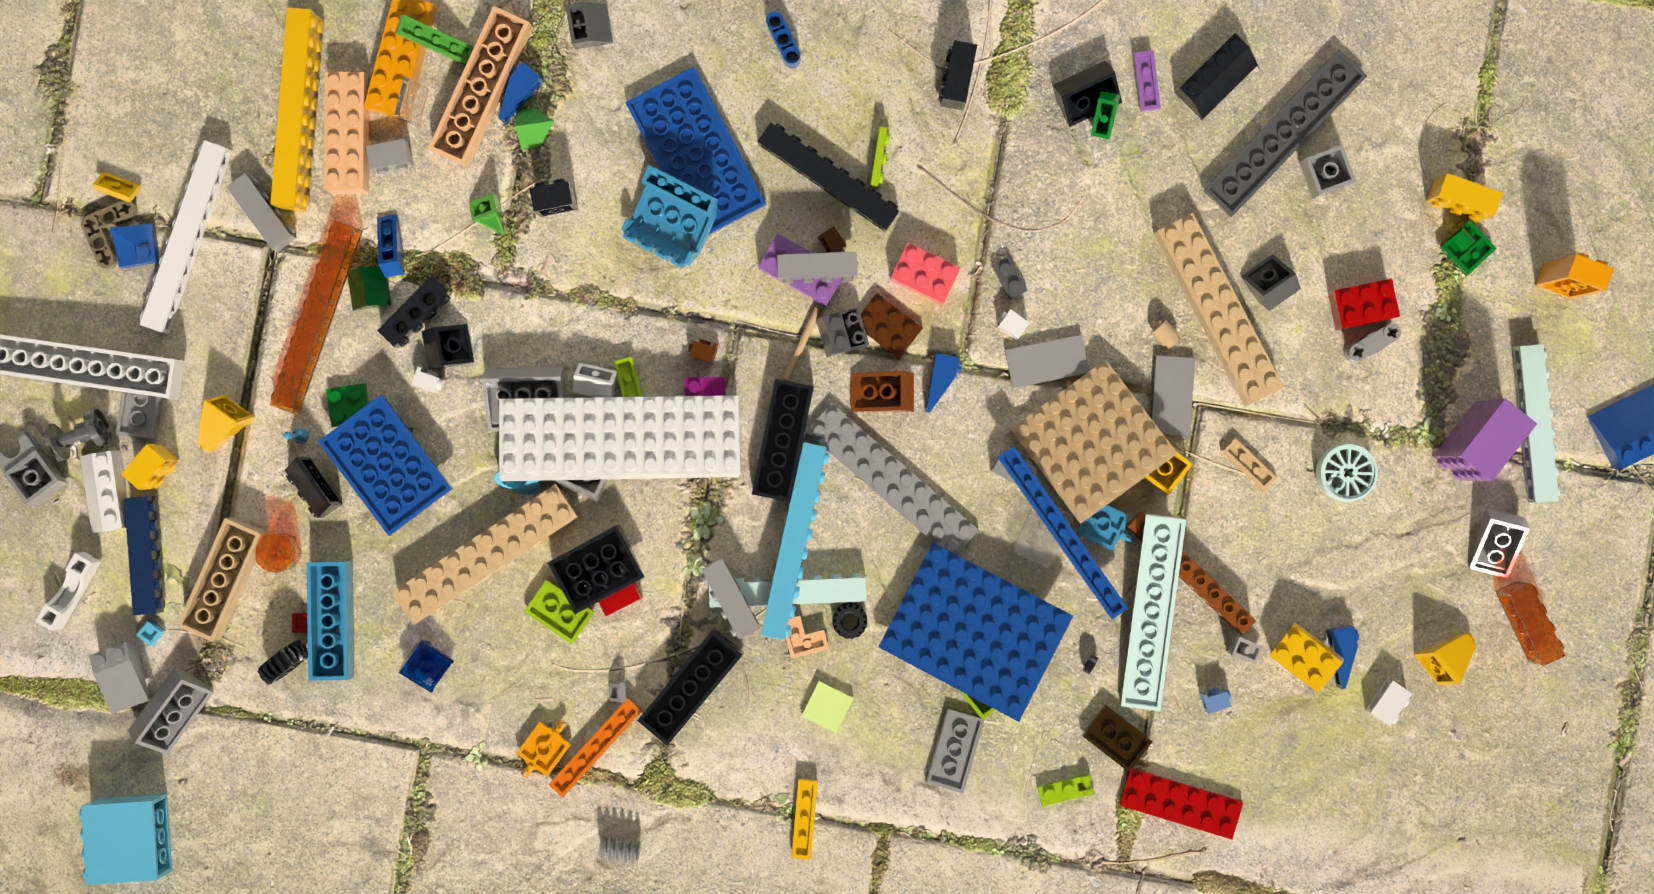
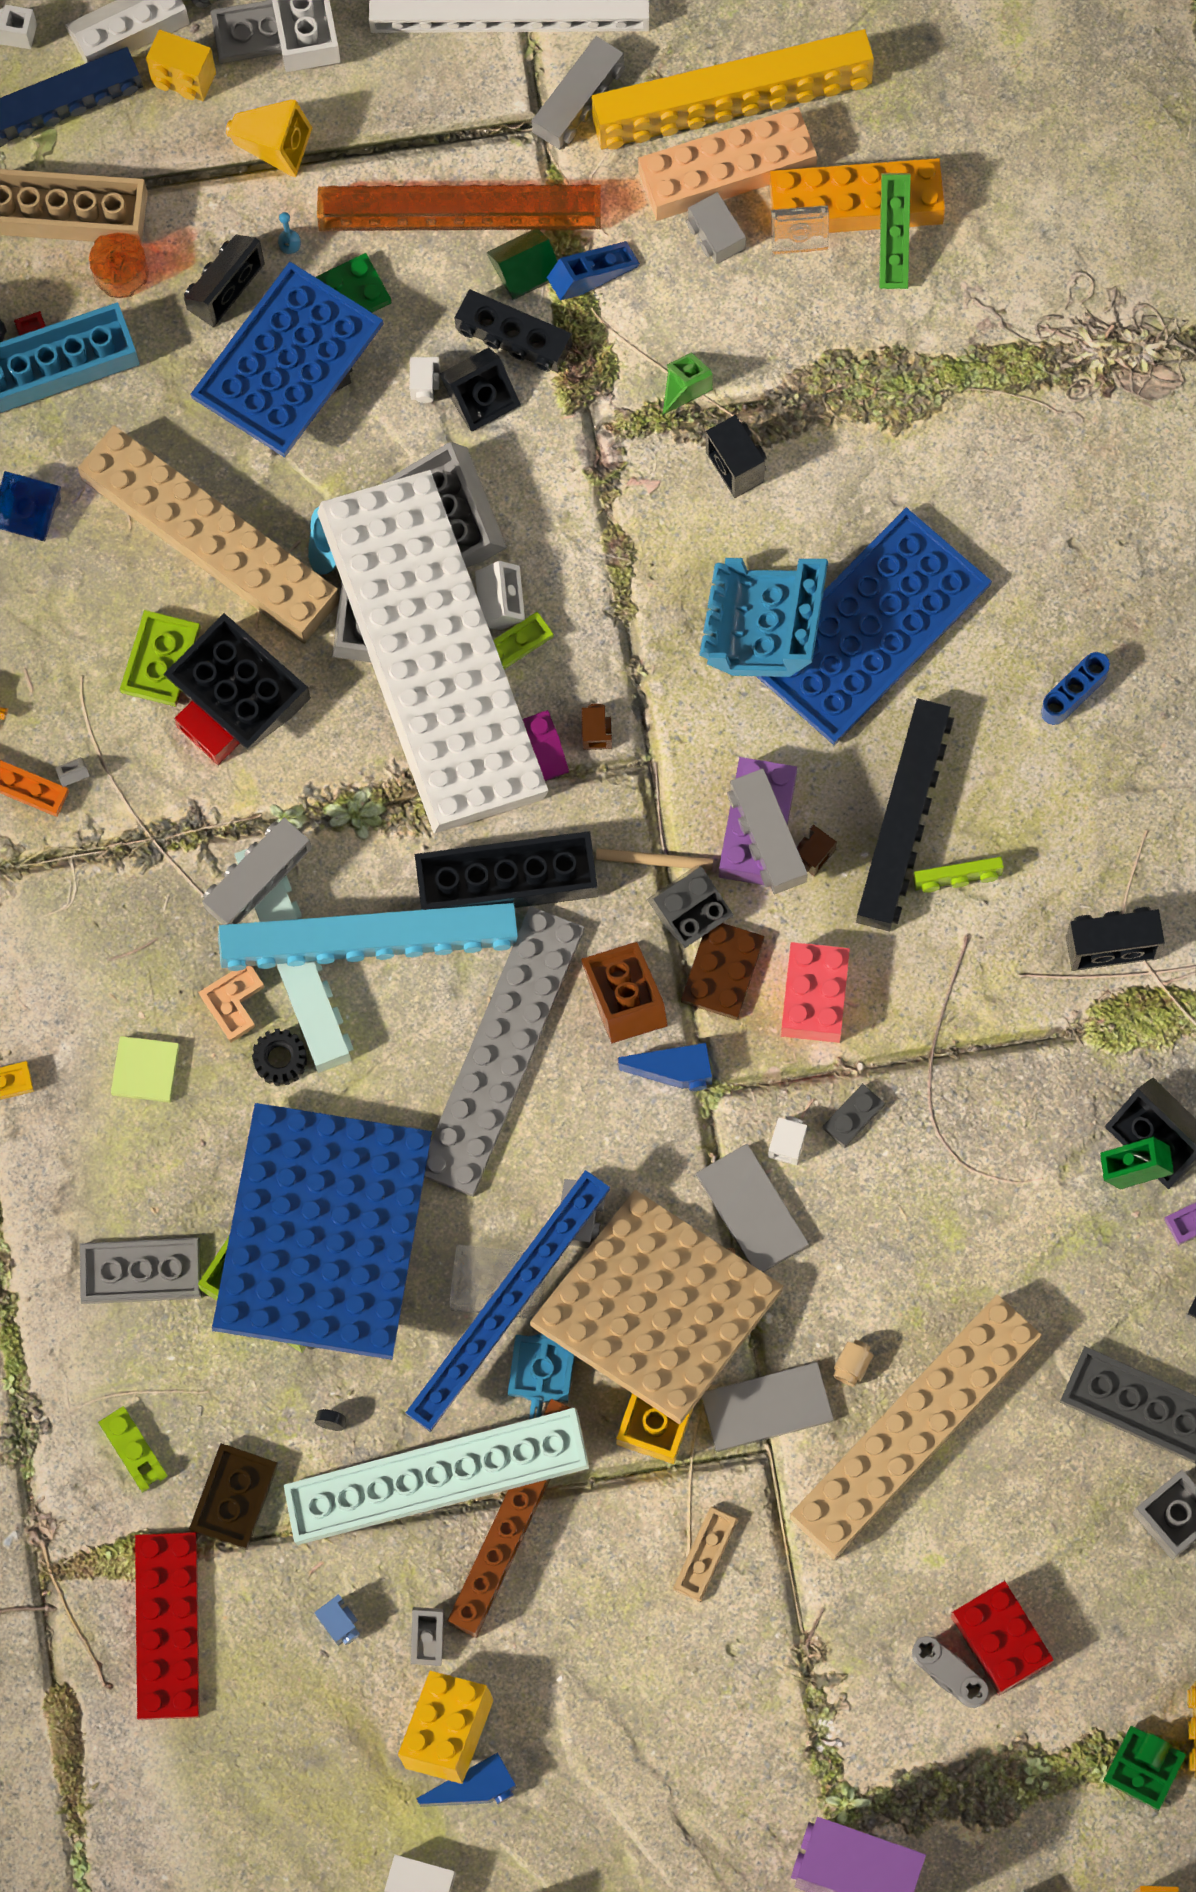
camera: 75 degrees right, 15 degrees down
(480, 87) = (854, 312): light nougat brick -> none
(520, 87) = (873, 364): blue slope -> none
(532, 127) = (824, 397): bright green slope -> none
(589, 24) = (995, 423): dark grey slope -> none
(690, 686) = (113, 866): black brick -> none
(1271, 282) = (984, 1491): dark grey slope -> none
(1344, 481) = (713, 1676): light aqua piece -> none

